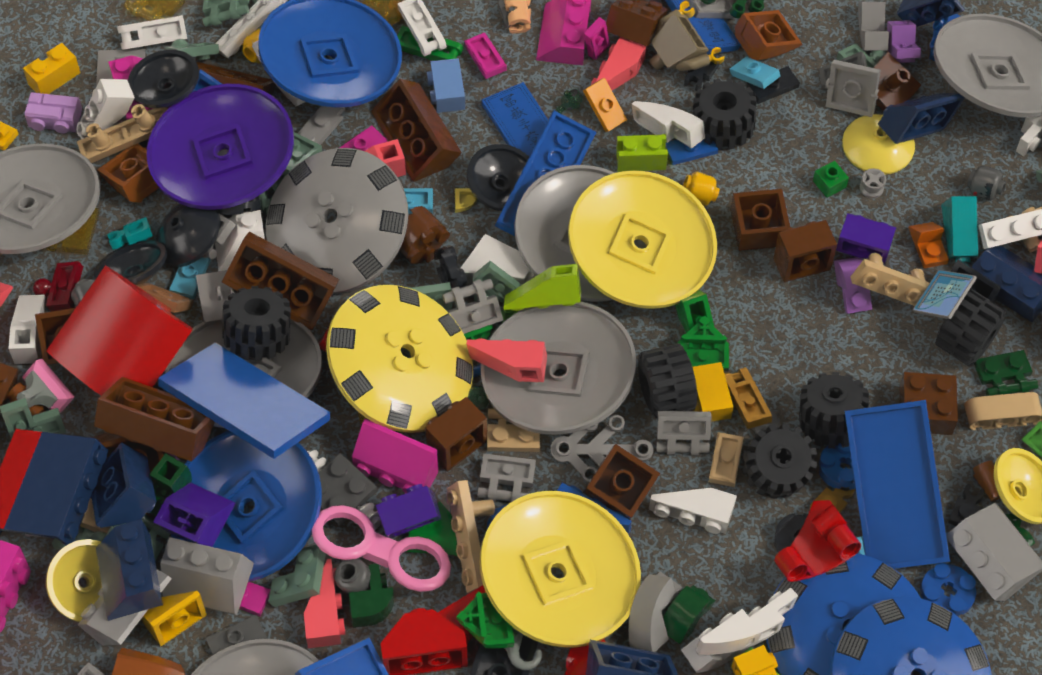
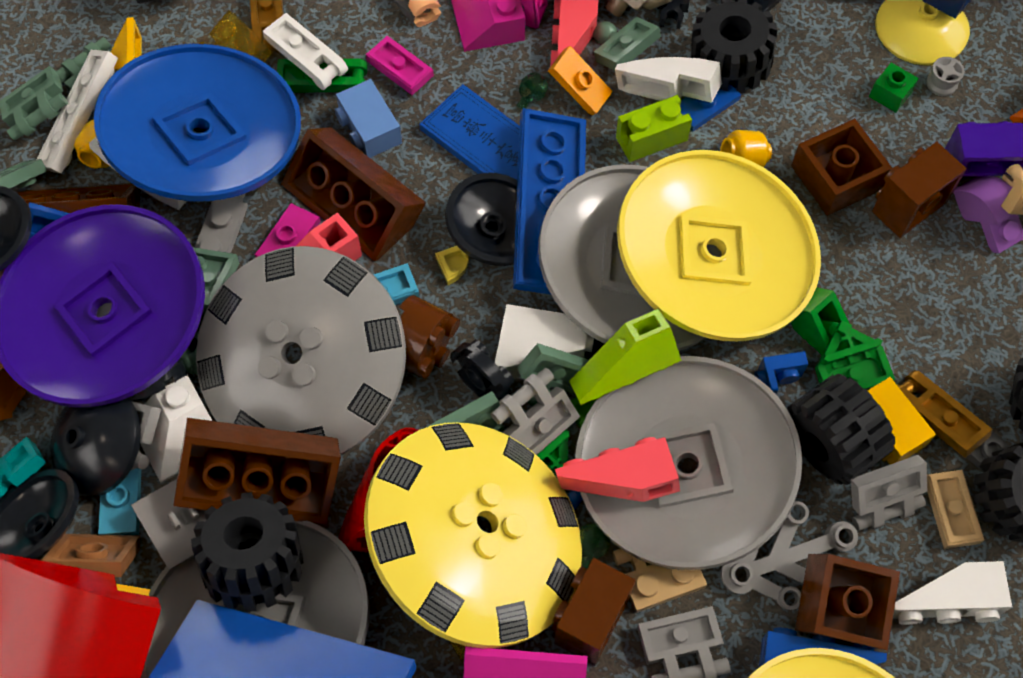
camera: 20 degrees left, 5 degrees up
(651, 89) = (626, 43): none -> sand green plate
(651, 334) = (784, 368): none -> blue bracket

